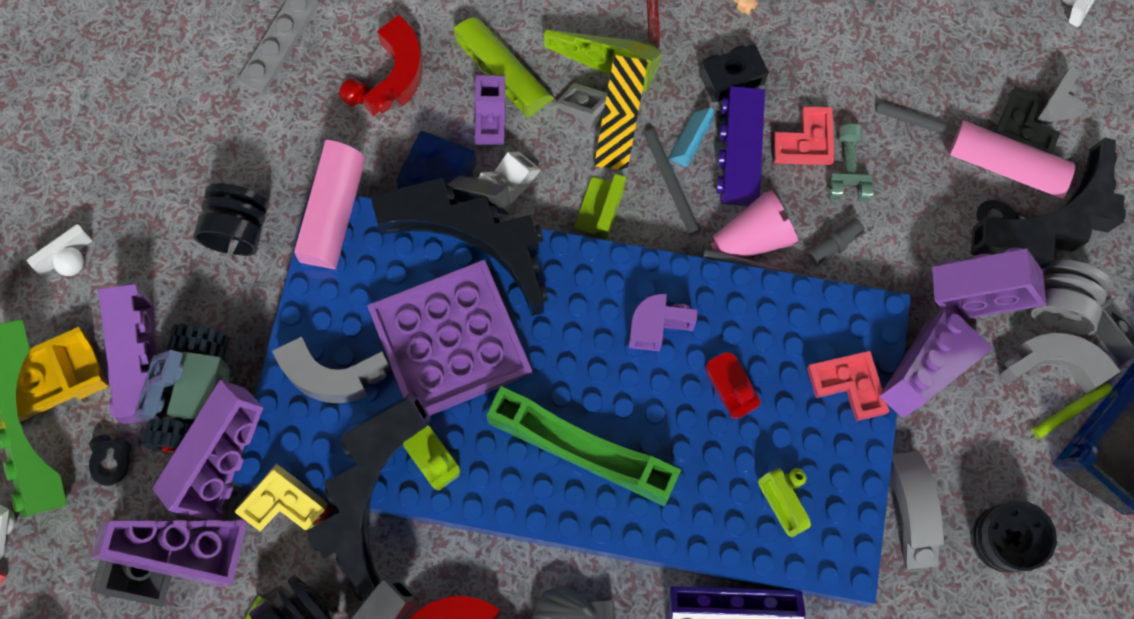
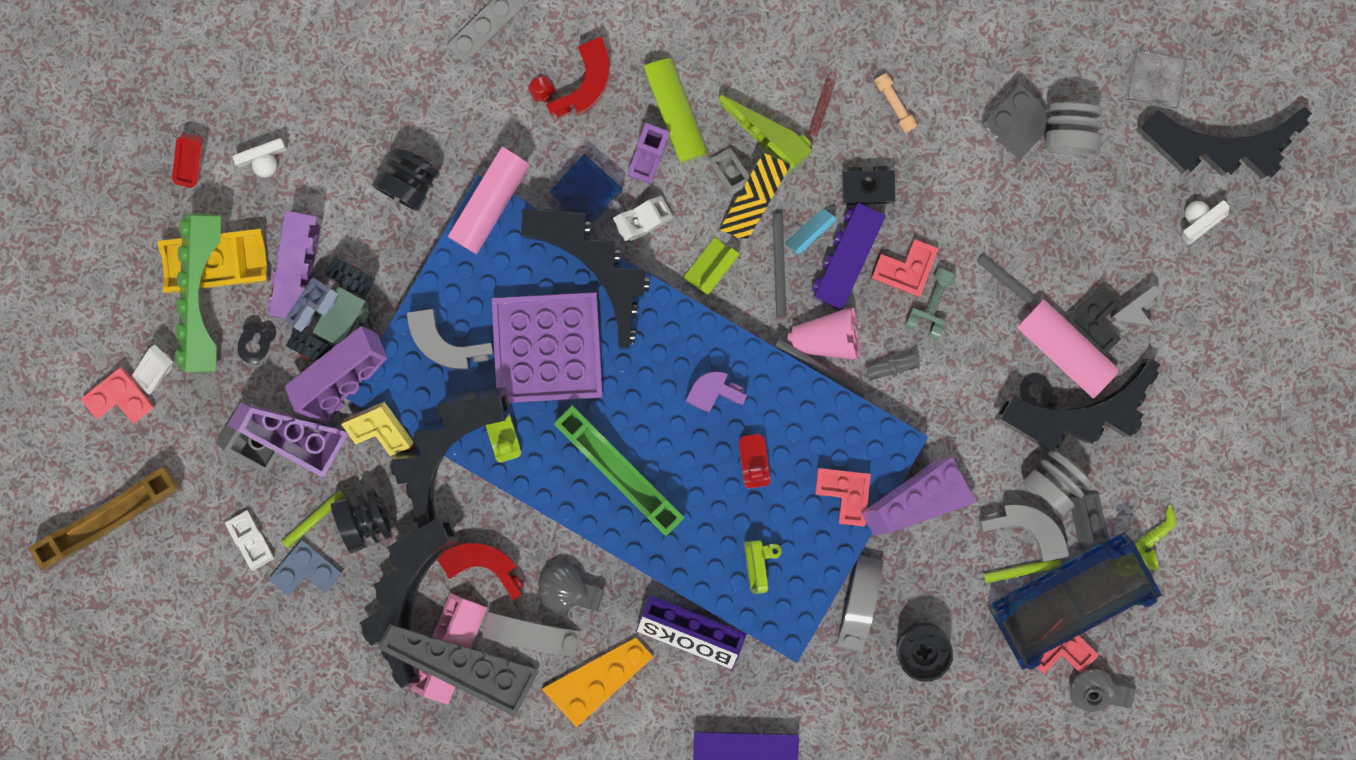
camera: 20 degrees right, 15 degrees up
(469, 189) = (614, 231): dark grey slope -> none
(990, 284) = (991, 452): medium lavender brick -> none

